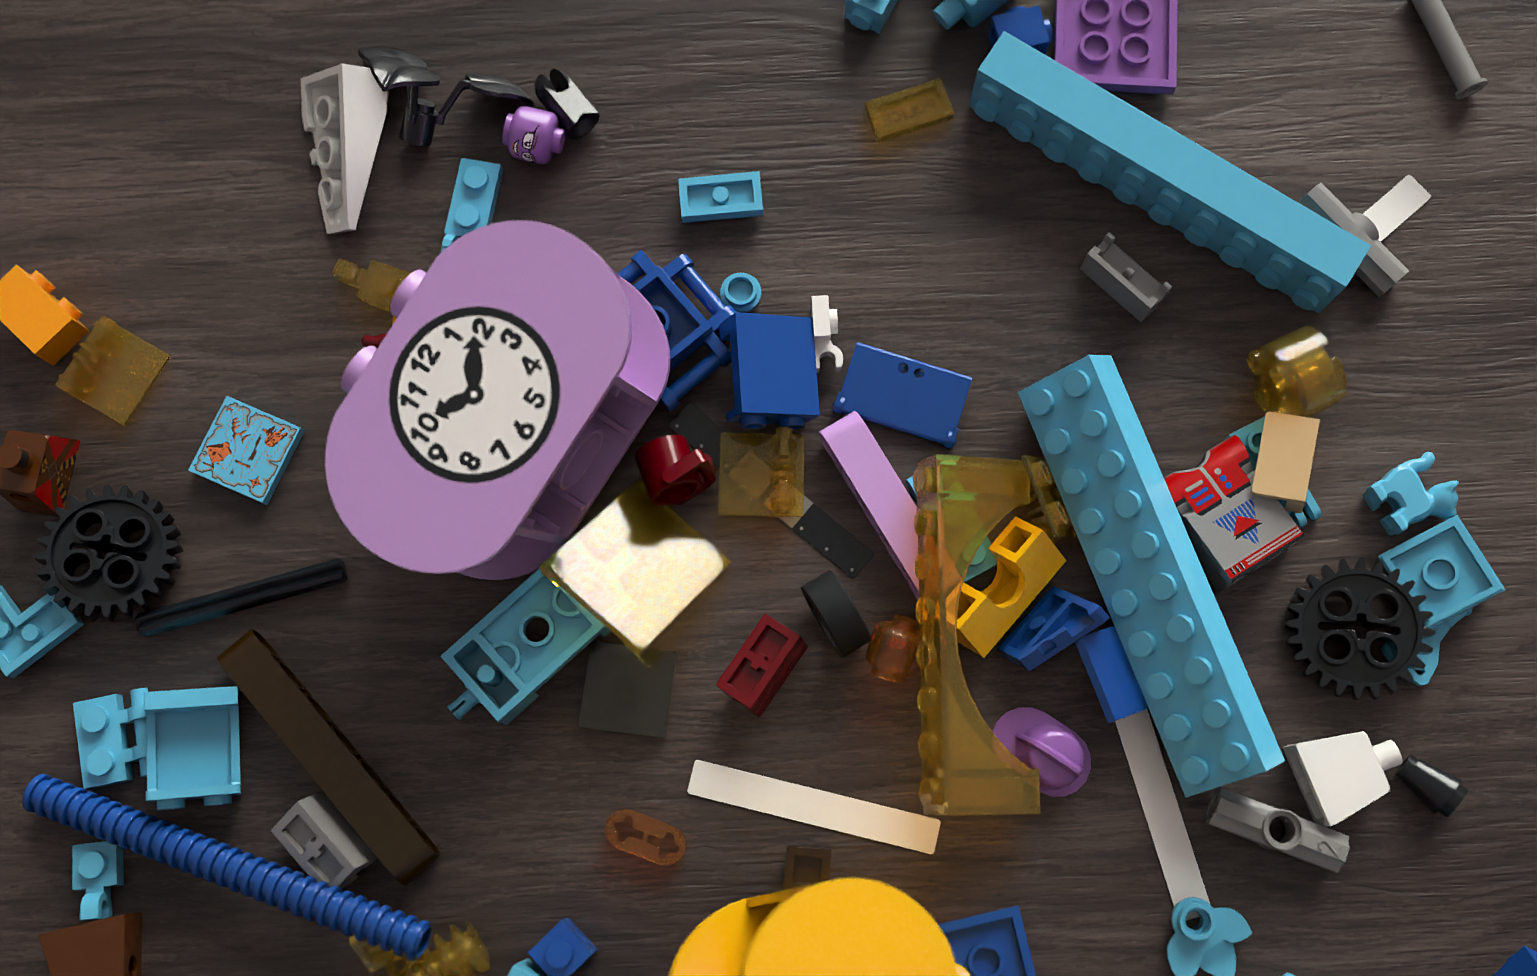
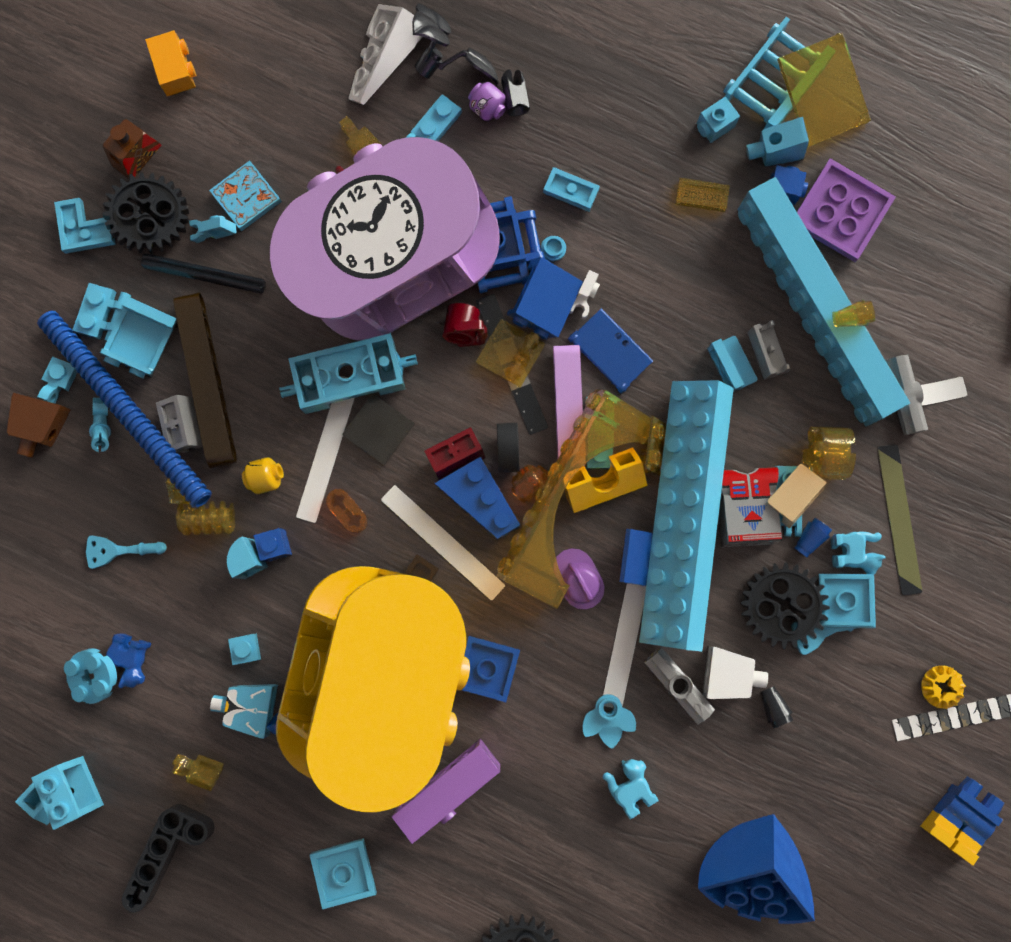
camera: 25 degrees right, 5 degrees up
(112, 370) = (197, 115): clear yellow hinge -> none
(203, 919) = (99, 429): none -> medium azure piece
(226, 520) = (215, 227): none -> medium azure plate
(491, 853) = (262, 475): none -> yellow head
(571, 780) = (324, 460): none -> white sticker
(635, 567) = (415, 366): clear yellow piece -> none
(836, 710) = (480, 498): none -> blue wedge
(1051, 627) = (618, 516): blue wing -> none
(1084, 322) = (732, 363): none -> medium azure panel
(1228, 161) = (857, 314): none -> clear yellow cone
(1339, 508) = (812, 537): none -> blue cone
(1443, 419) = (900, 520): none -> olive sticker

